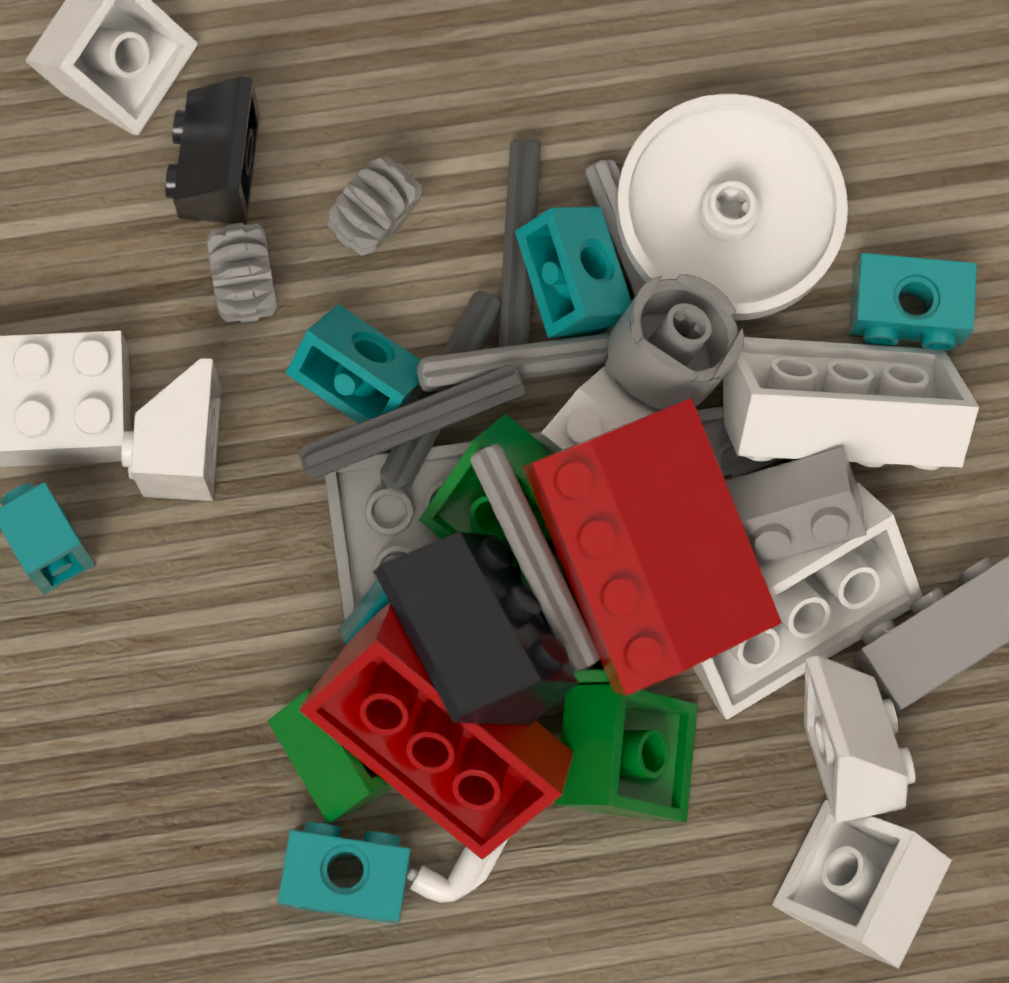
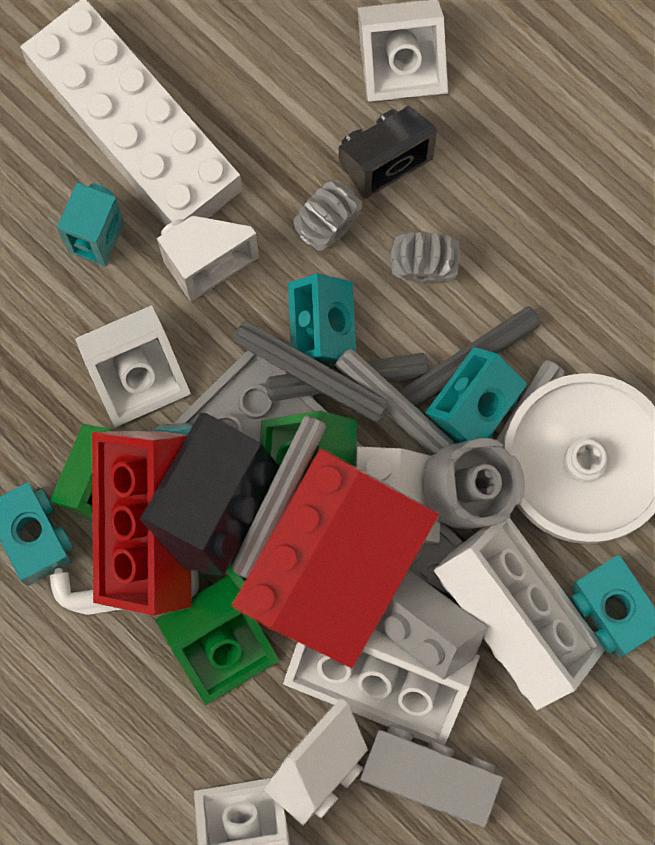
camera: 60 degrees right, 0 degrees up
(241, 616) = (133, 366): none -> white slope

